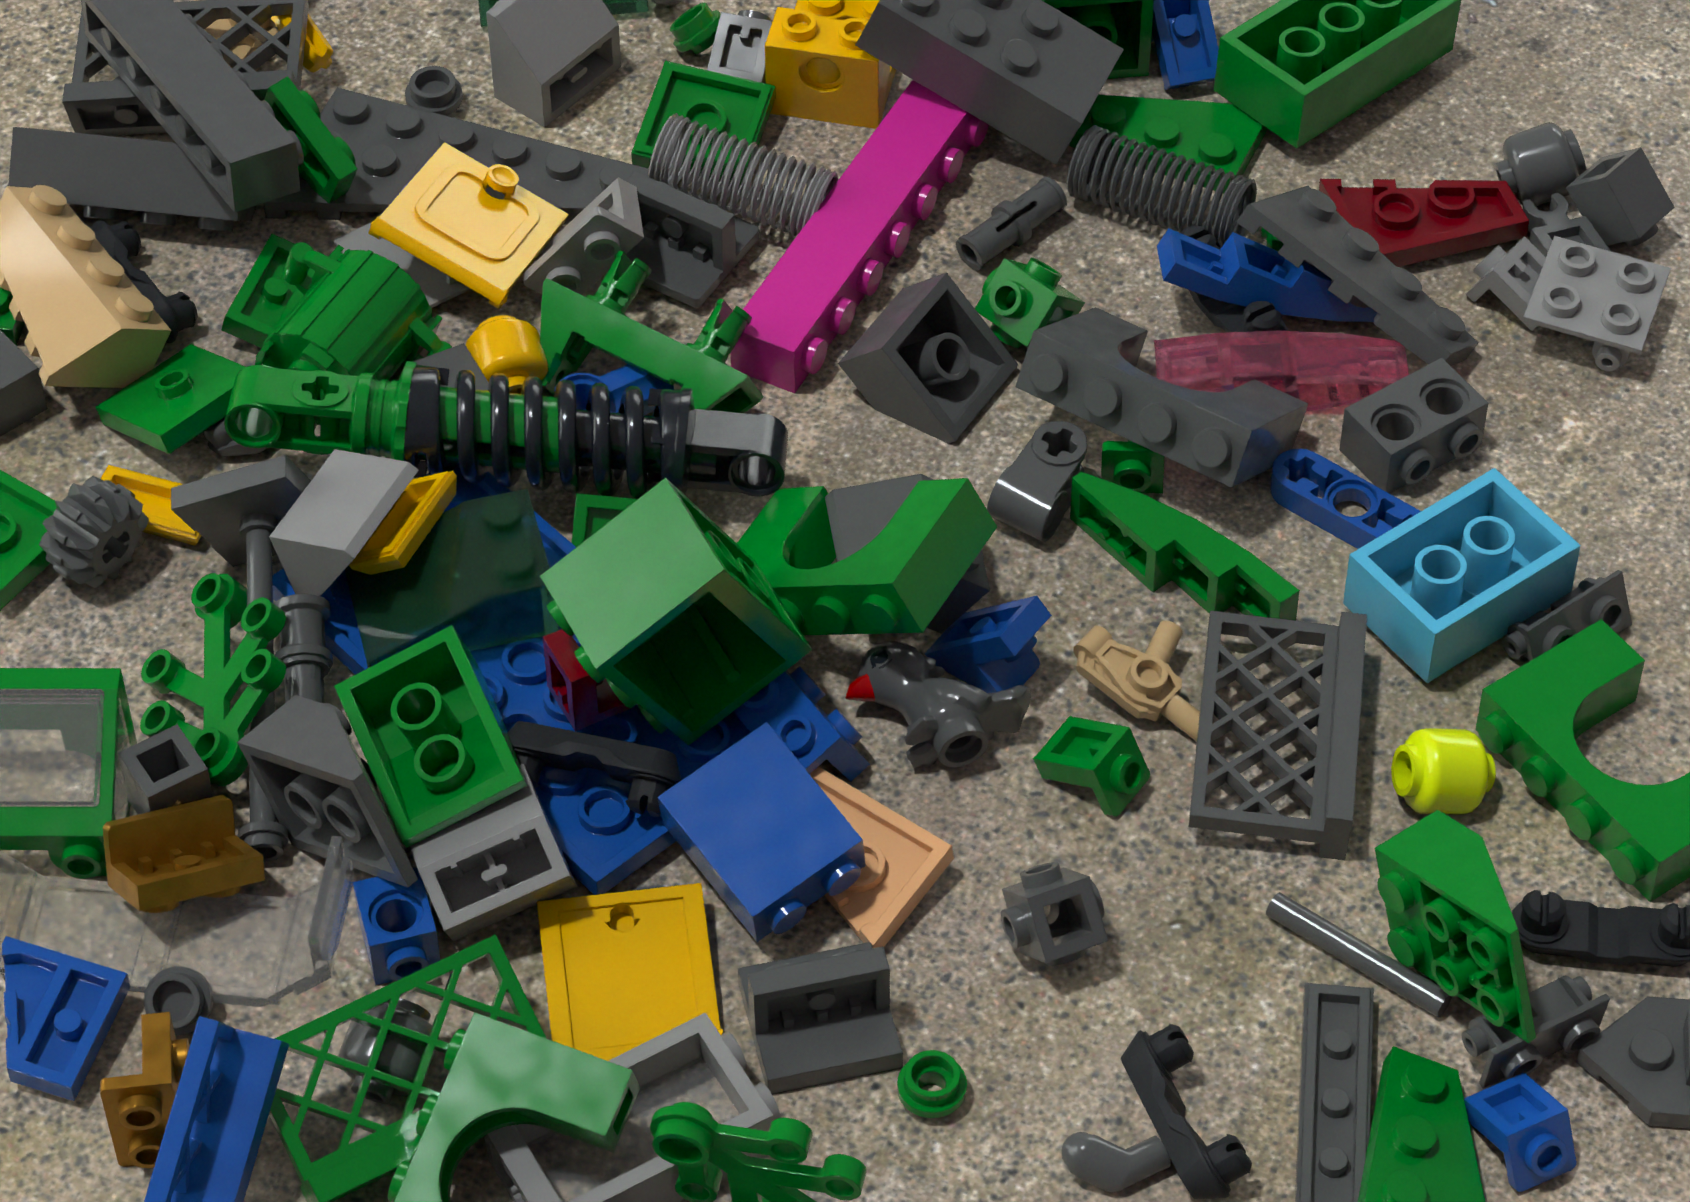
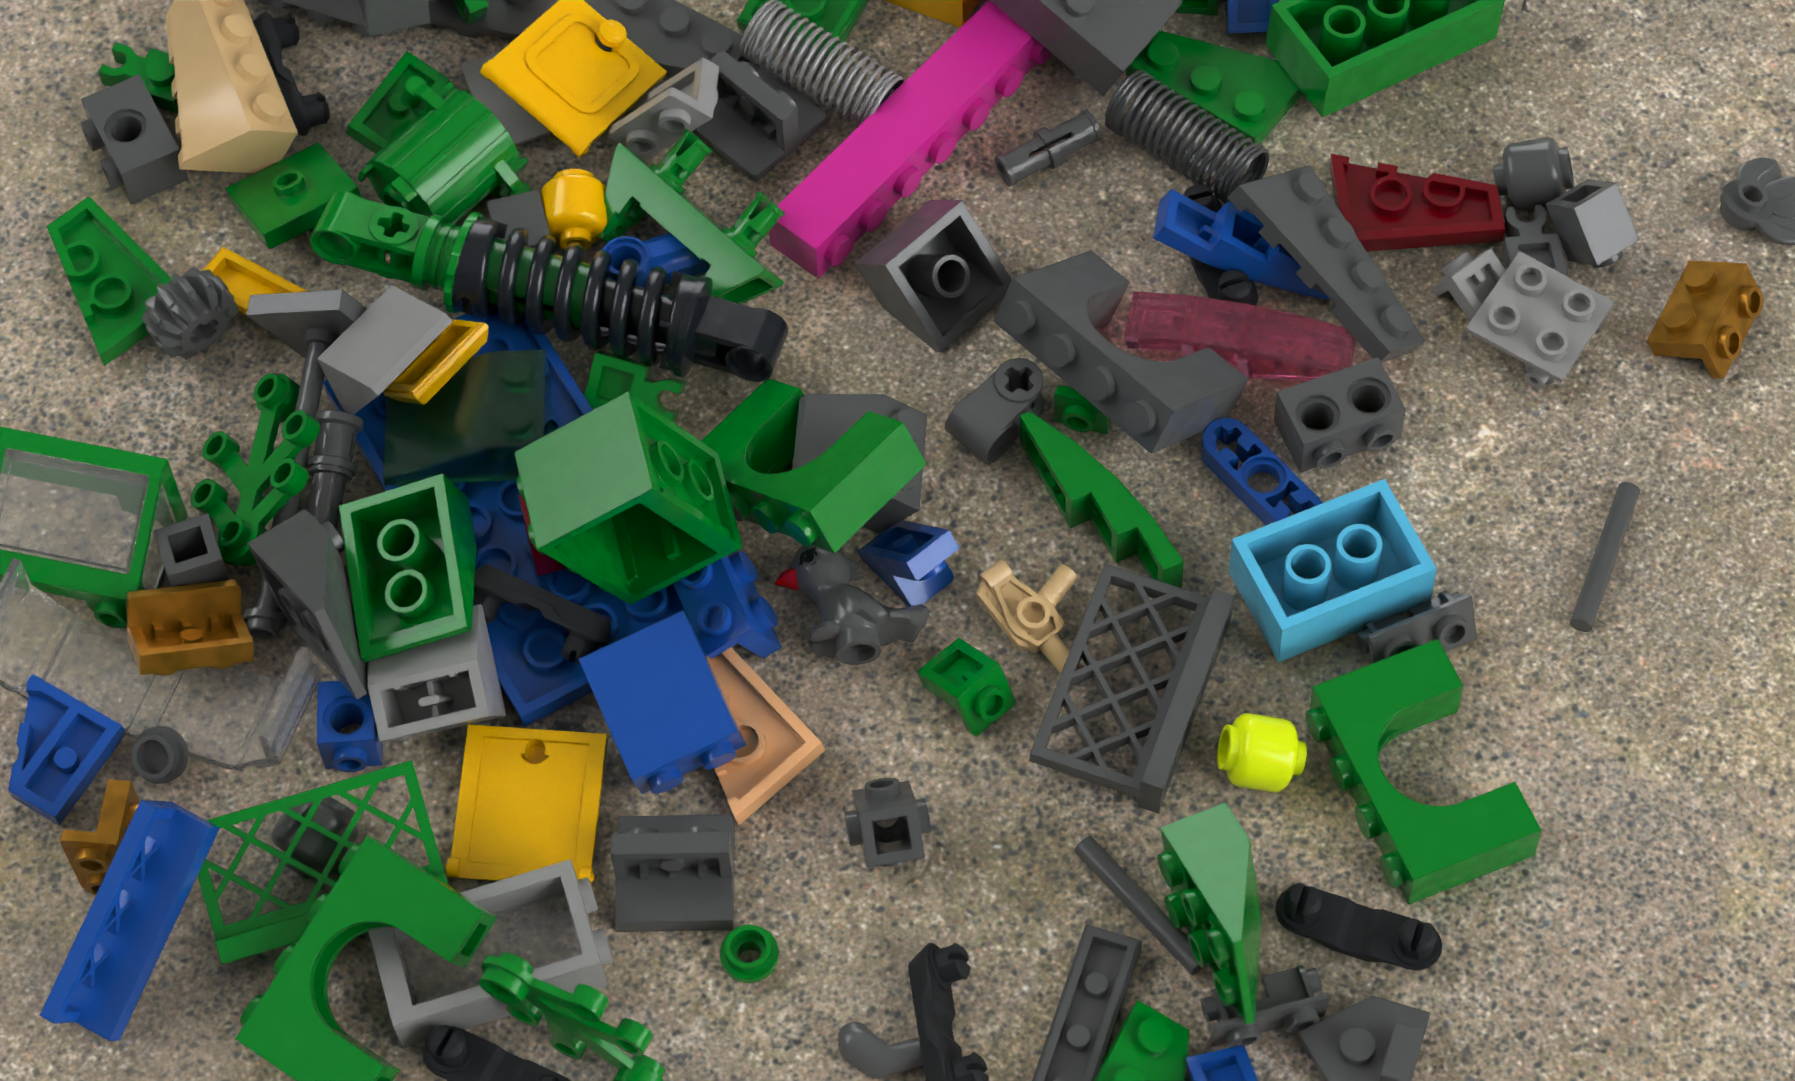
camera: 15 degrees right, 10 degrees up
(1024, 299) = (1034, 233): green brick -> none

